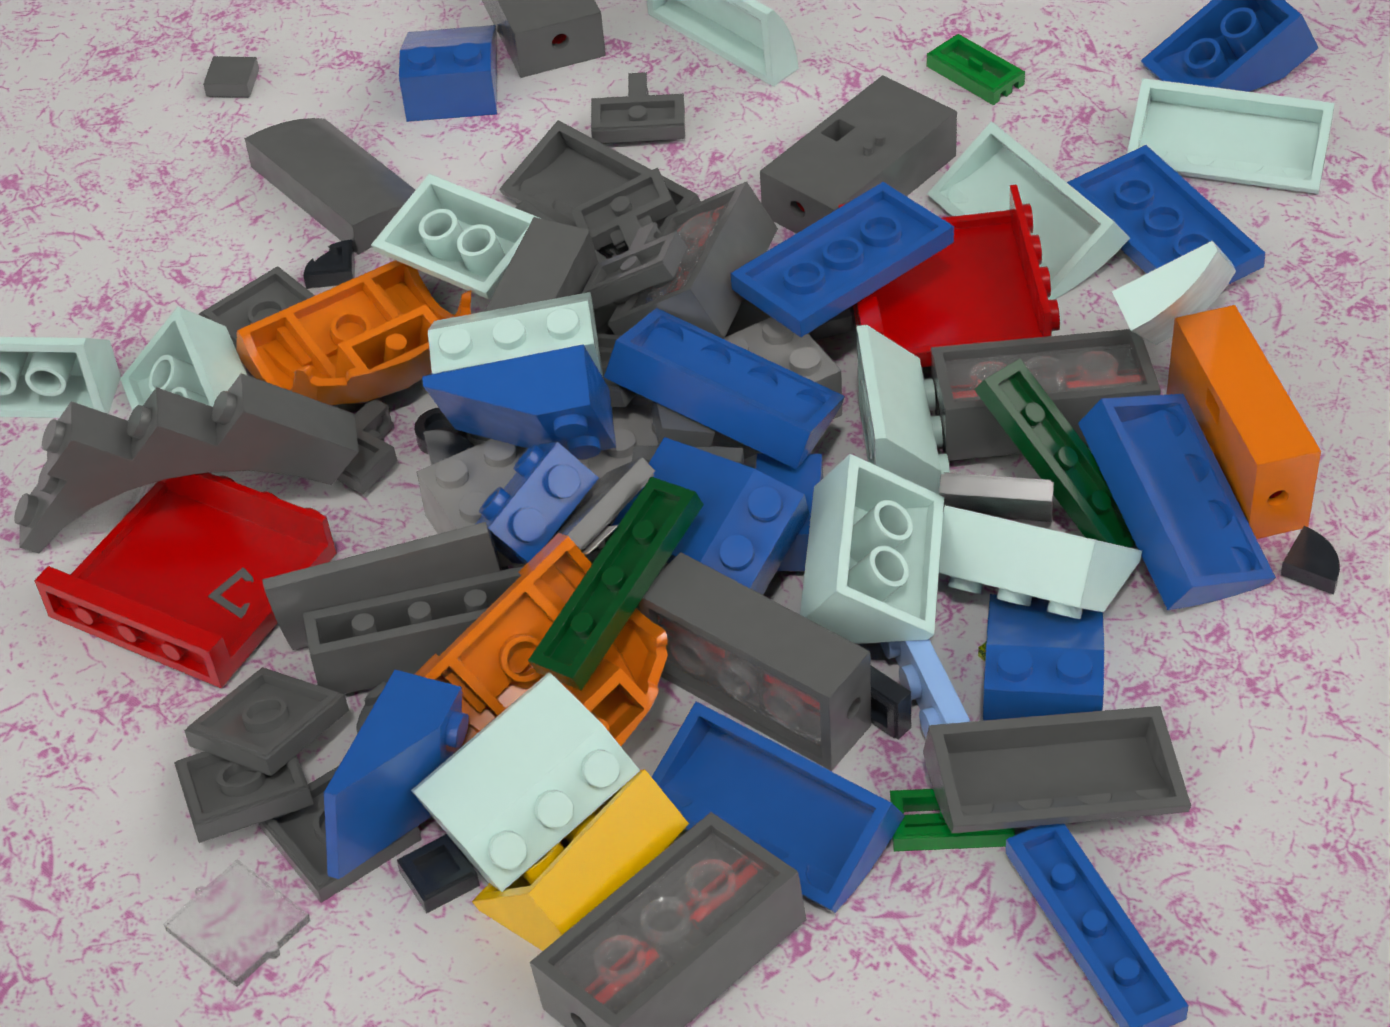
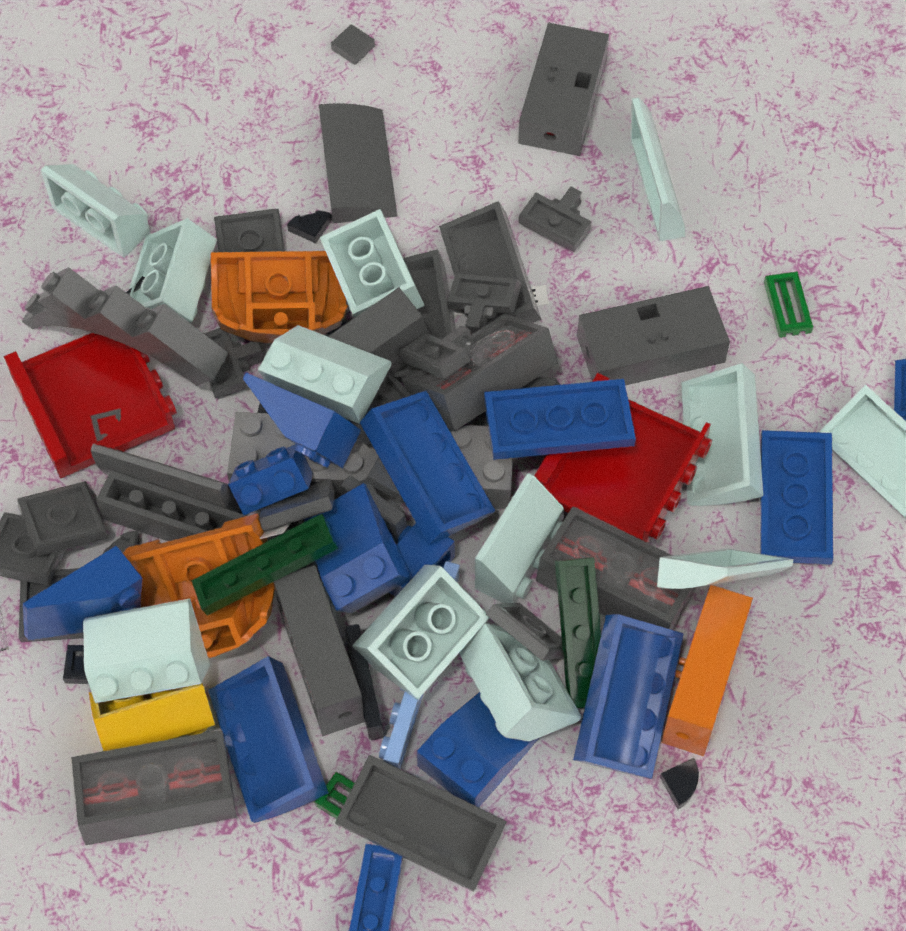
camera: 30 degrees right, 15 degrees up
(449, 73) = (476, 115): blue slope -> none

